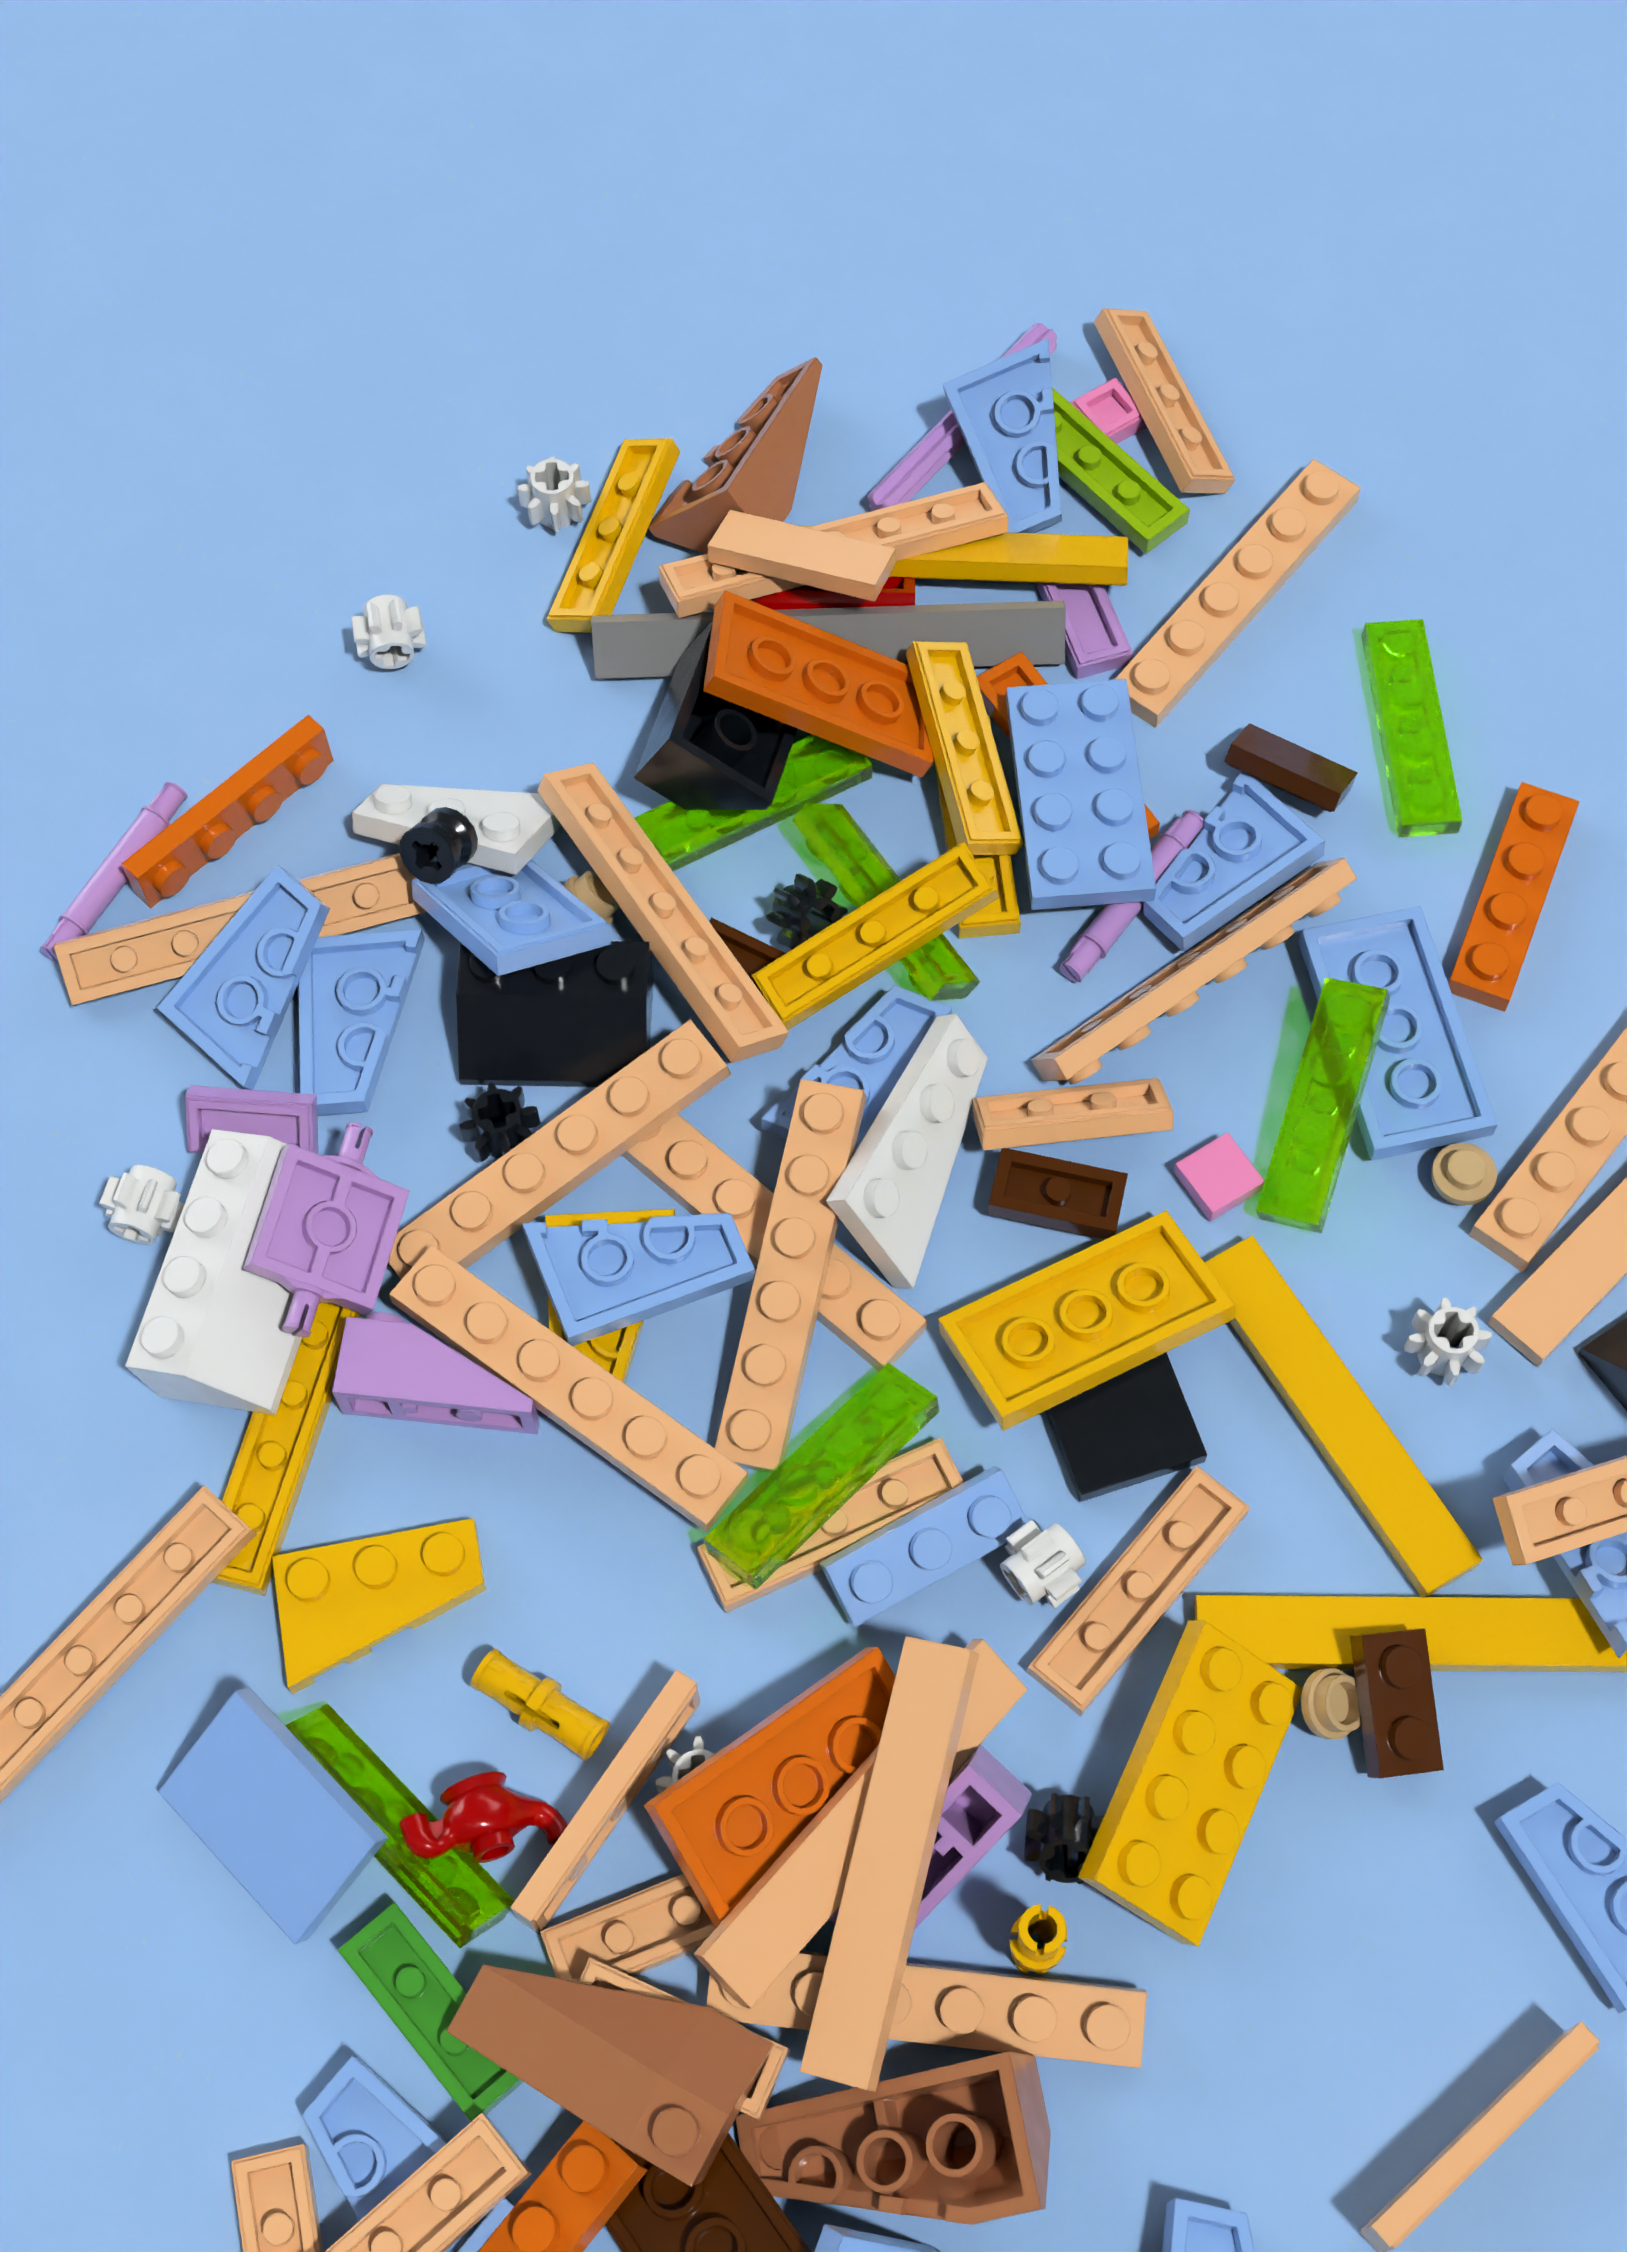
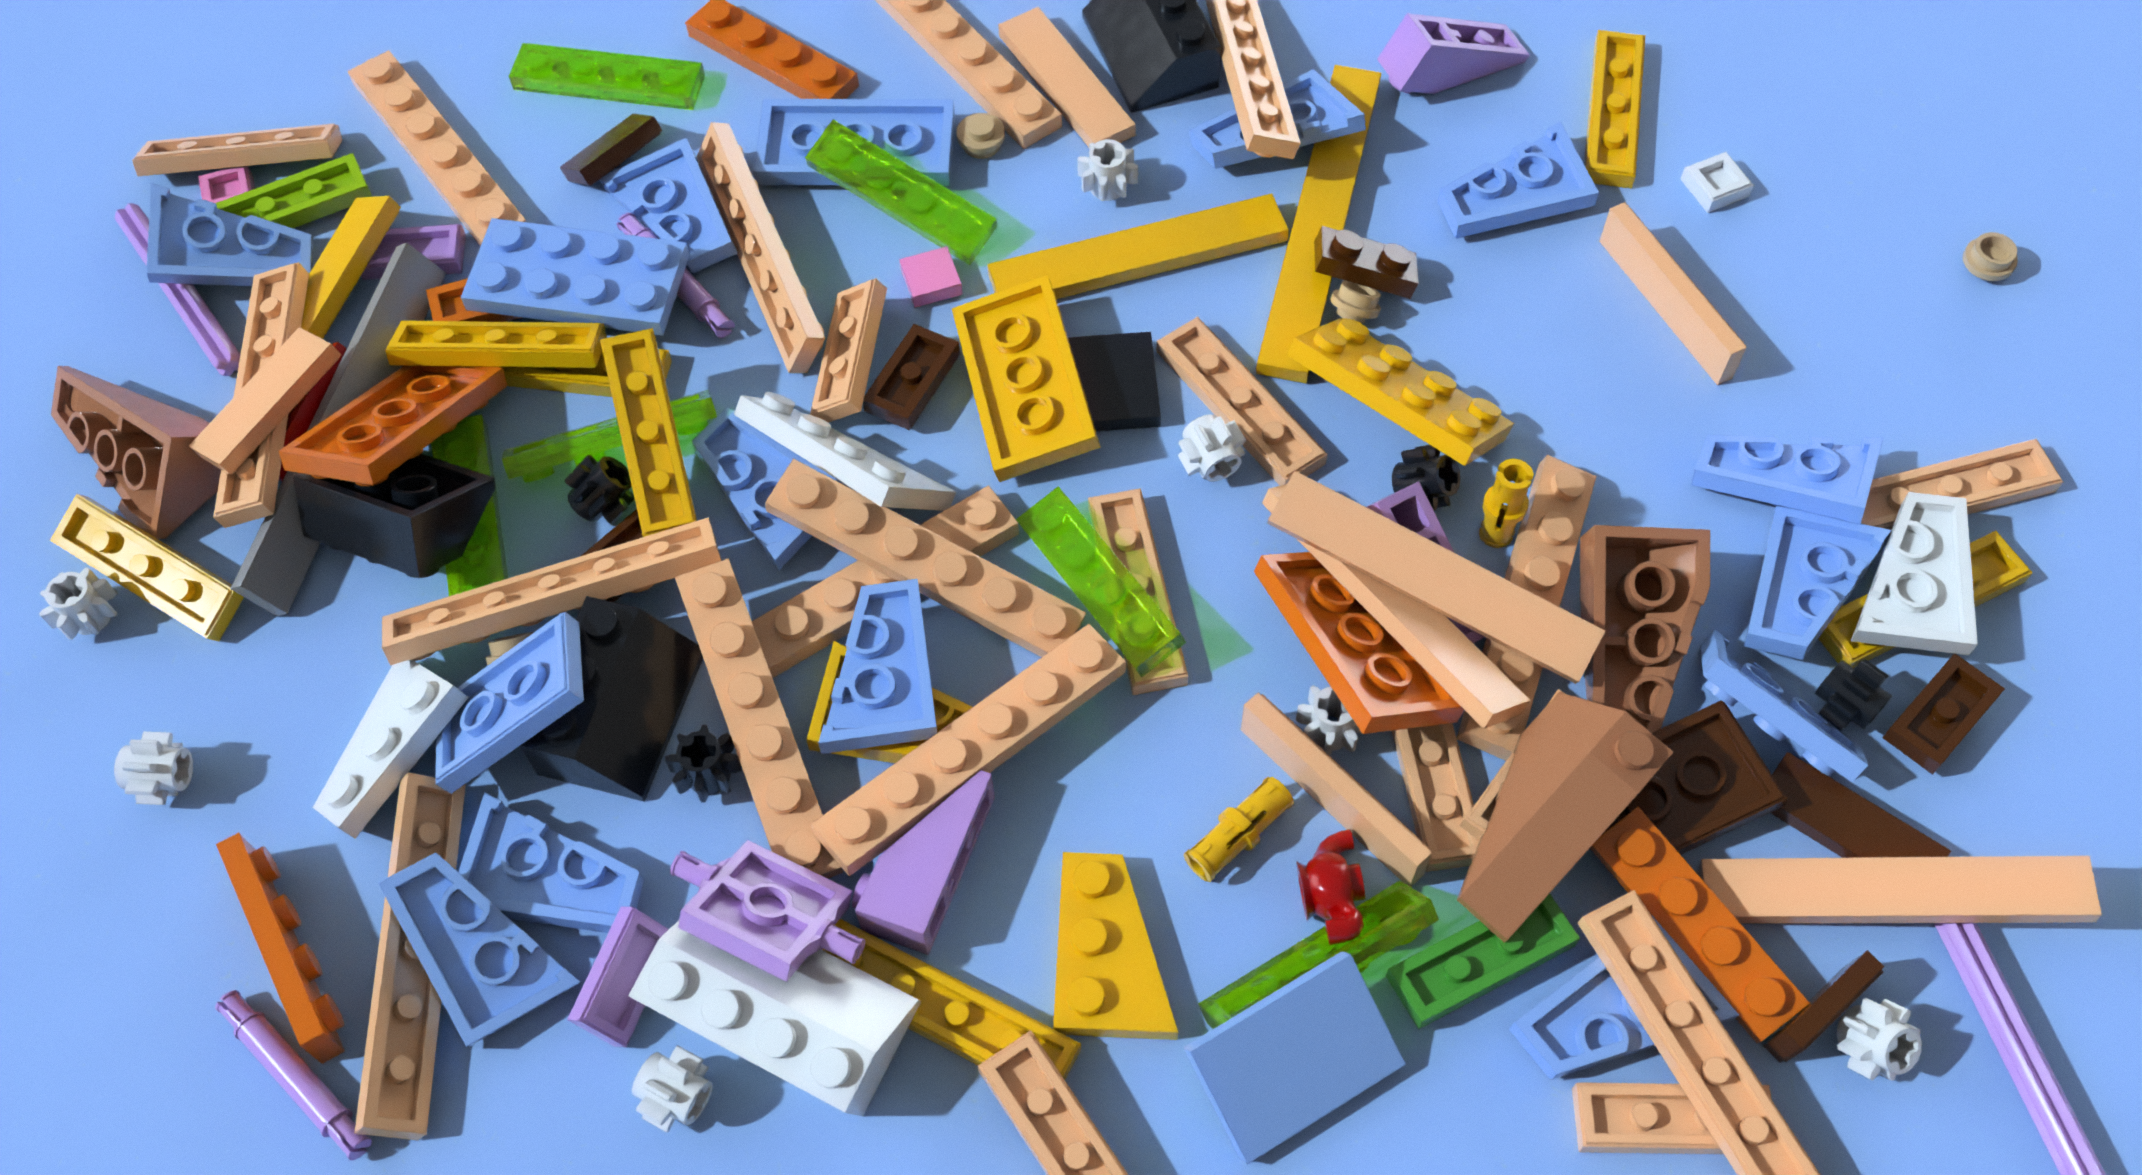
camera: 75 degrees left, 5 degrees down
(453, 840) = (403, 737): black wheel -> none
(924, 1546) = (1175, 526): light blue plate -> none

